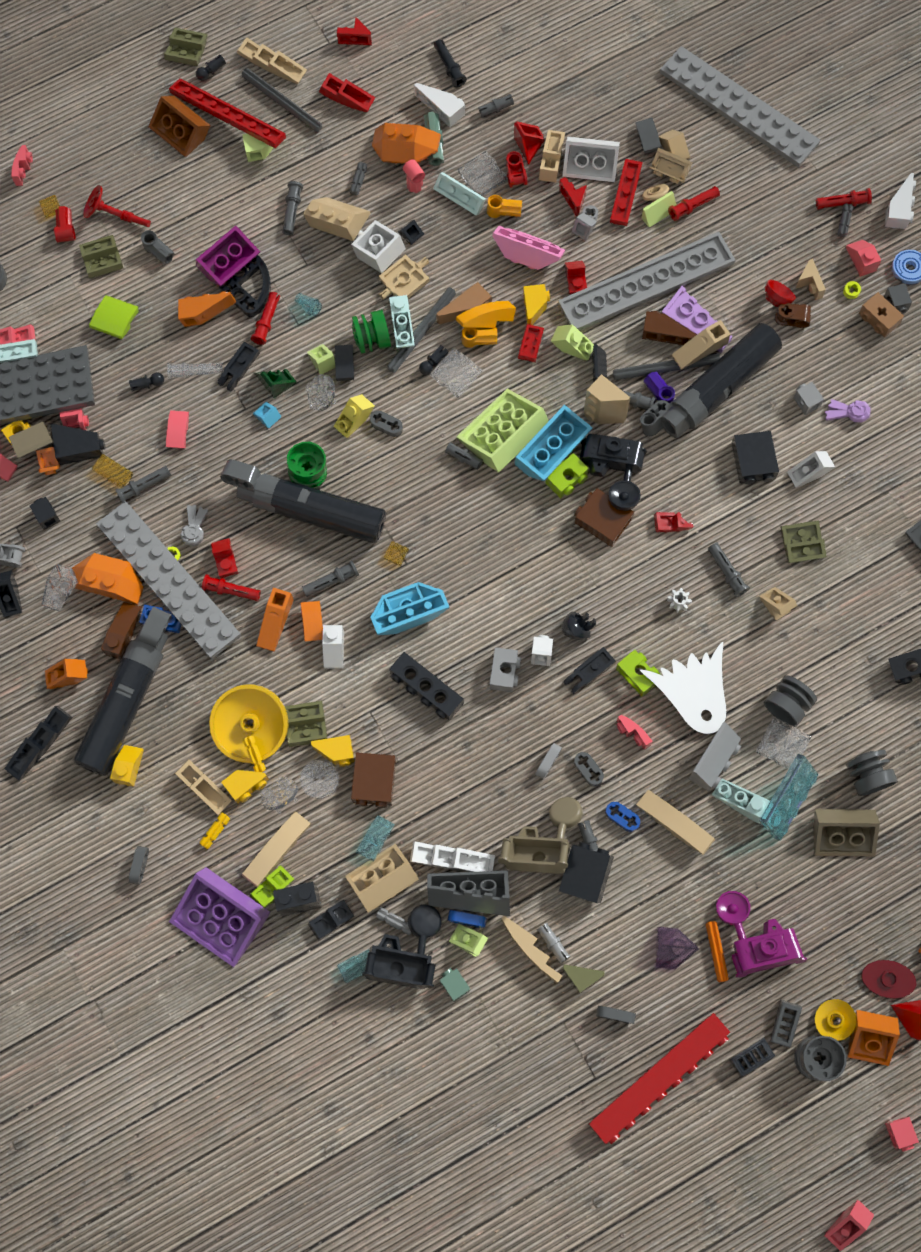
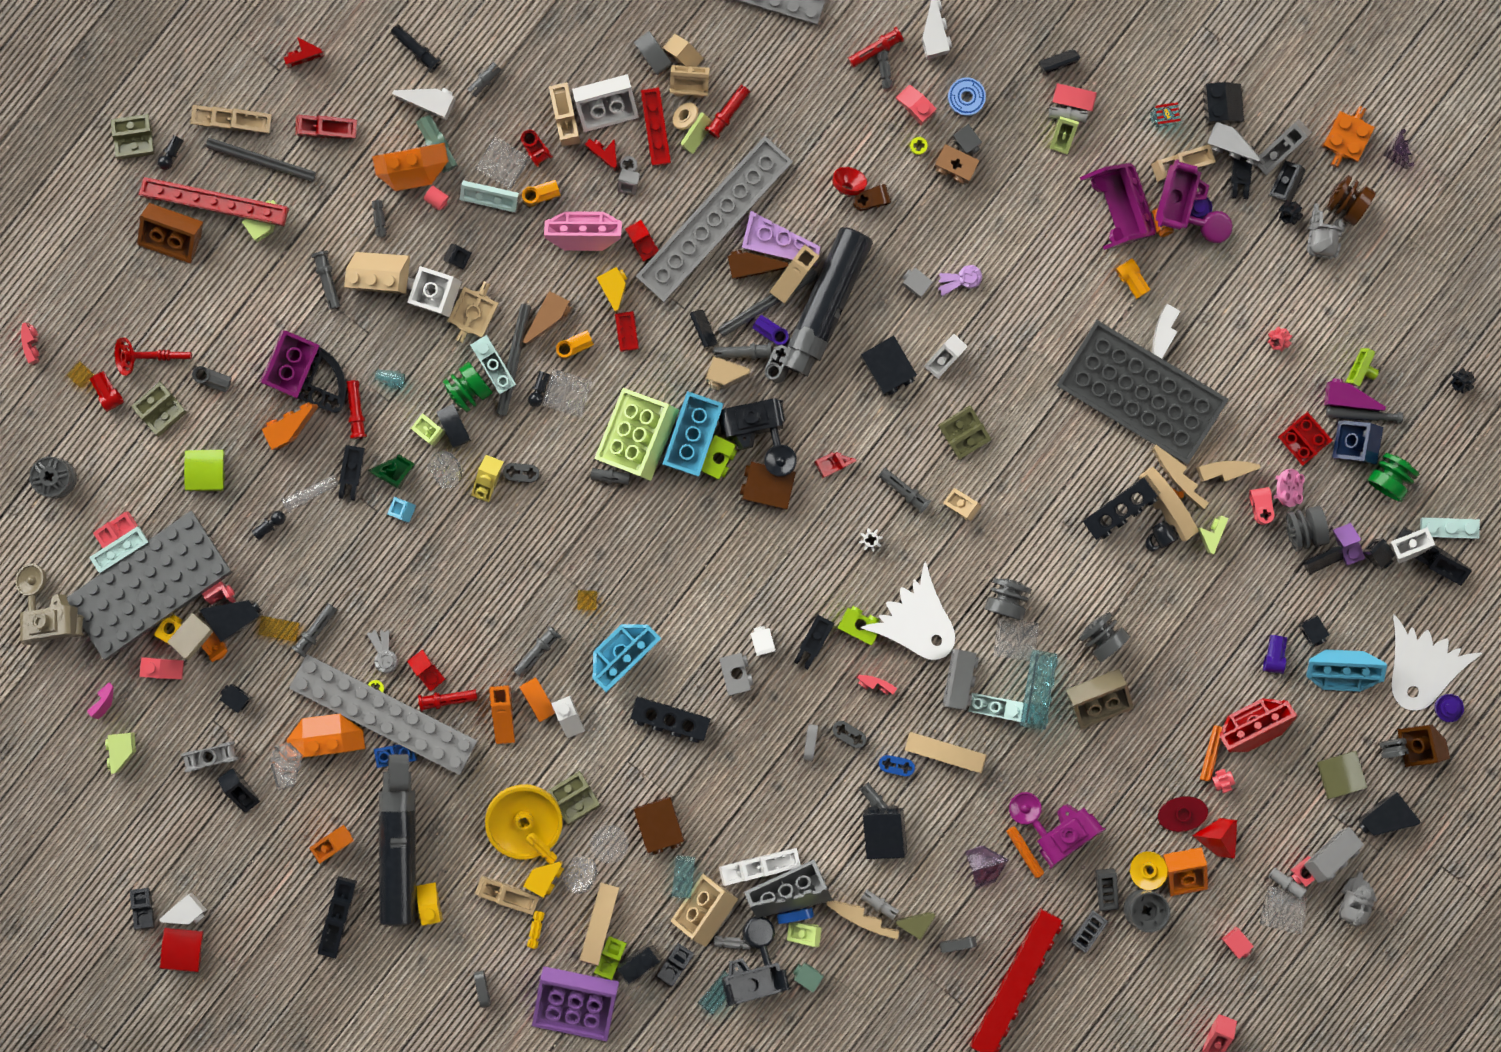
camera: 25 degrees left, 15 degrees up
(121, 630) = (363, 780): reddish brown slope -> none
(177, 429) = (322, 561): coral slope -> none
(303, 457) = (456, 546): green wheel -> none
(304, 502) = (482, 589): black piece -> none
(336, 749) = (613, 812): yellow slope -> none
(487, 315) = (573, 322): light orange slope -> none
(528, 139) = (534, 105): red slope -> none
(538, 854) = (840, 832): dark tan piece -> none
(572, 342) = (667, 315): yellowish green slope -> none
(576, 627) = (785, 604): black piece -> none
(812, 278) = (872, 148): tan slope -> none

